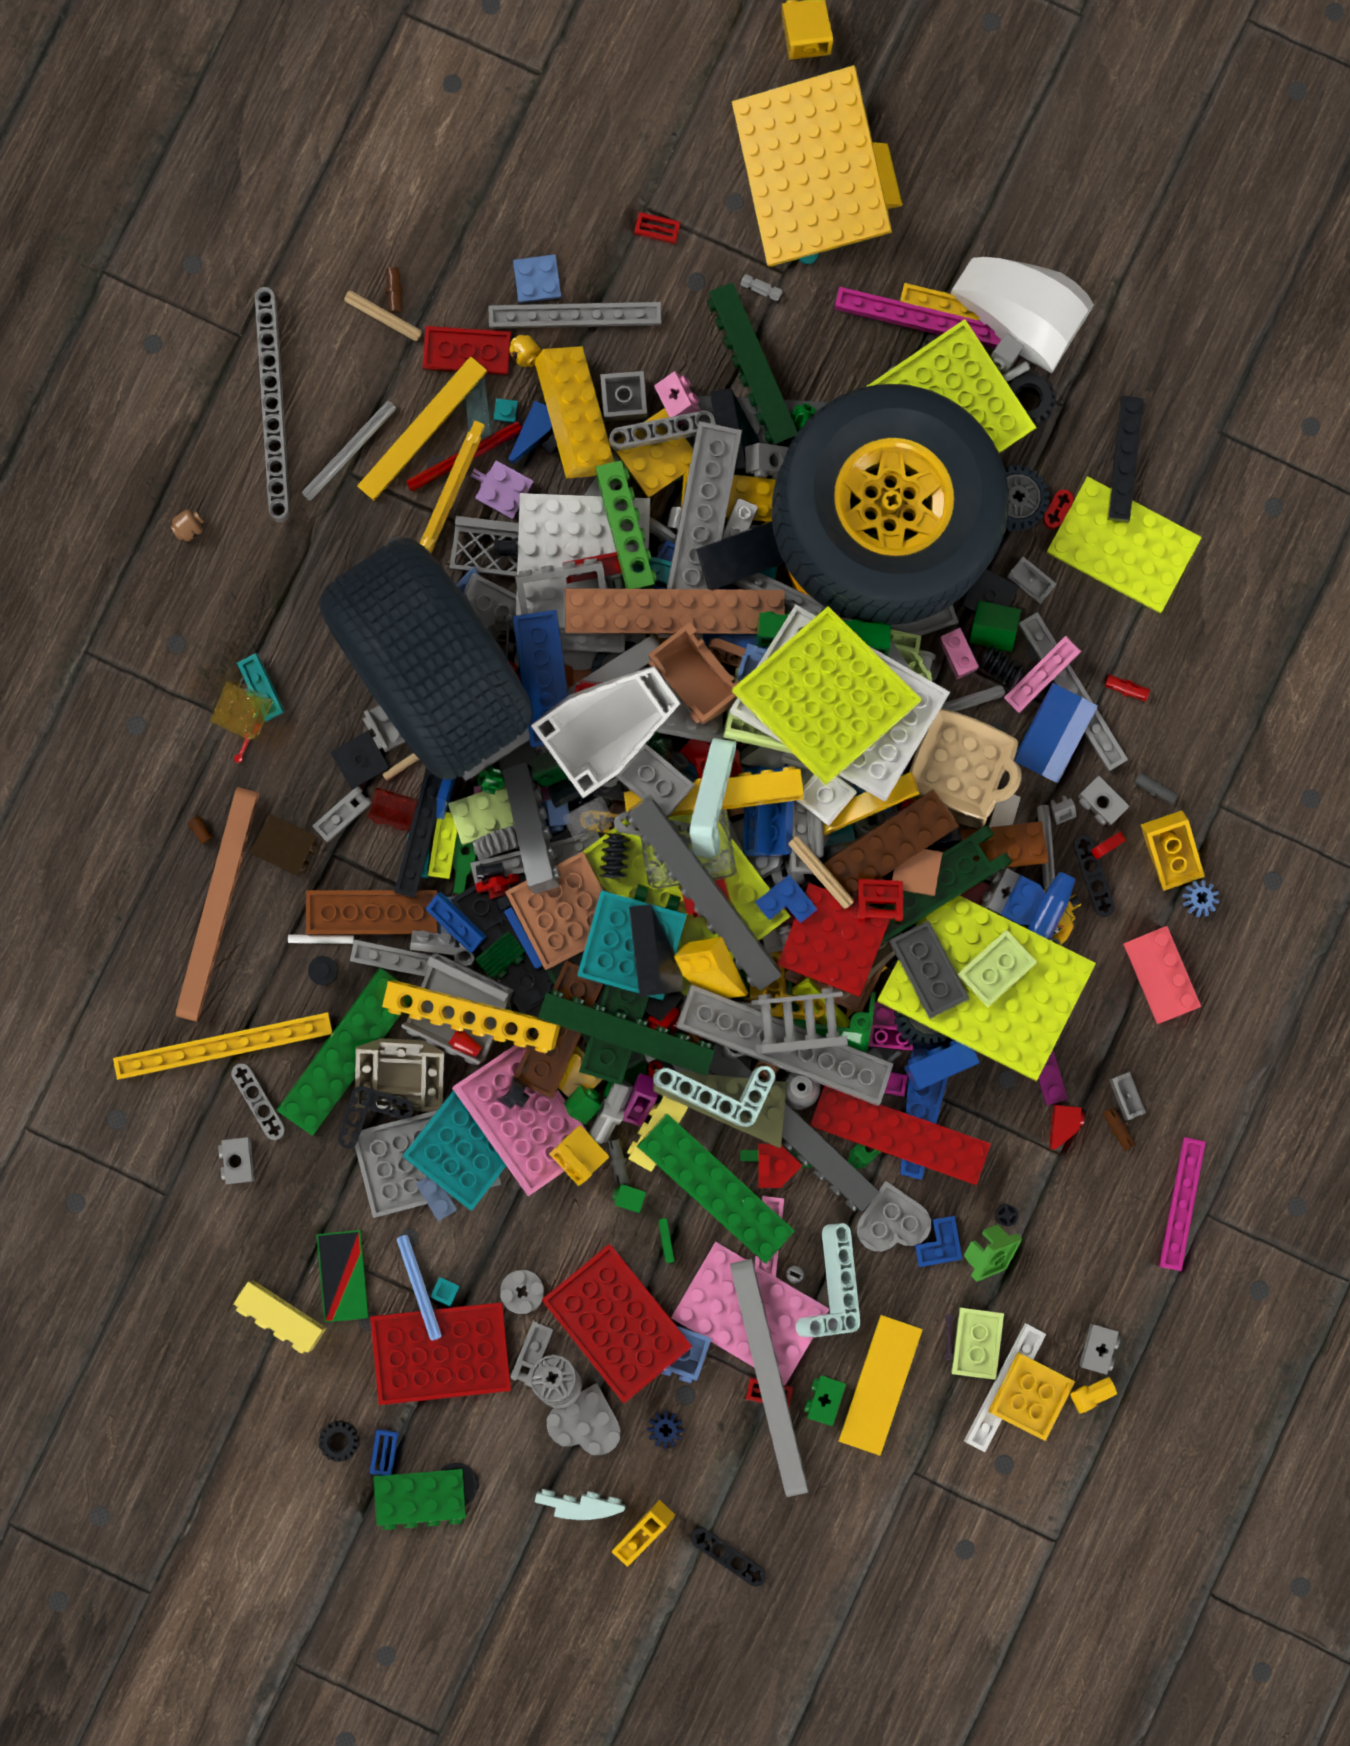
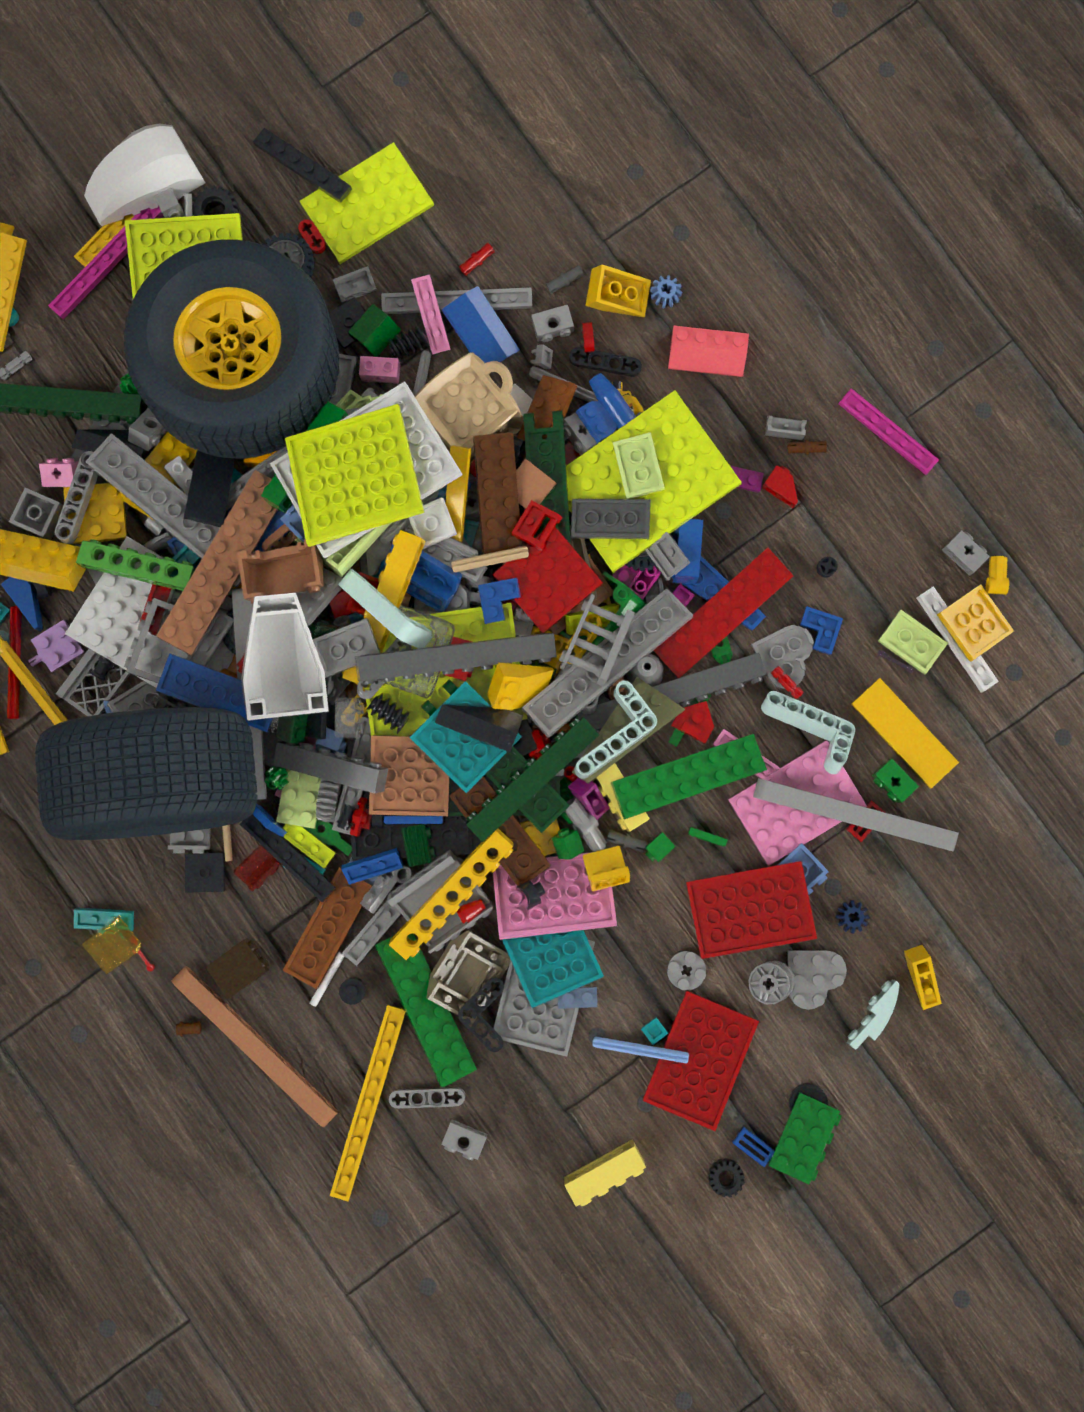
camera: 55 degrees left, 0 degrees up
(341, 814) = (239, 910): light grey plate -> none
(342, 1276) = (599, 1105): tile -> none
(531, 1351) = (737, 988): light grey plate -> none
(726, 1559) = (976, 924): black beam -> none
(796, 1269) = (782, 749): light grey hinge -> none
(865, 1237) = (787, 682): none -> red axle
(922, 1047) = (667, 556): none -> light grey plate
(995, 1256) = (857, 592): bright green panel -> none

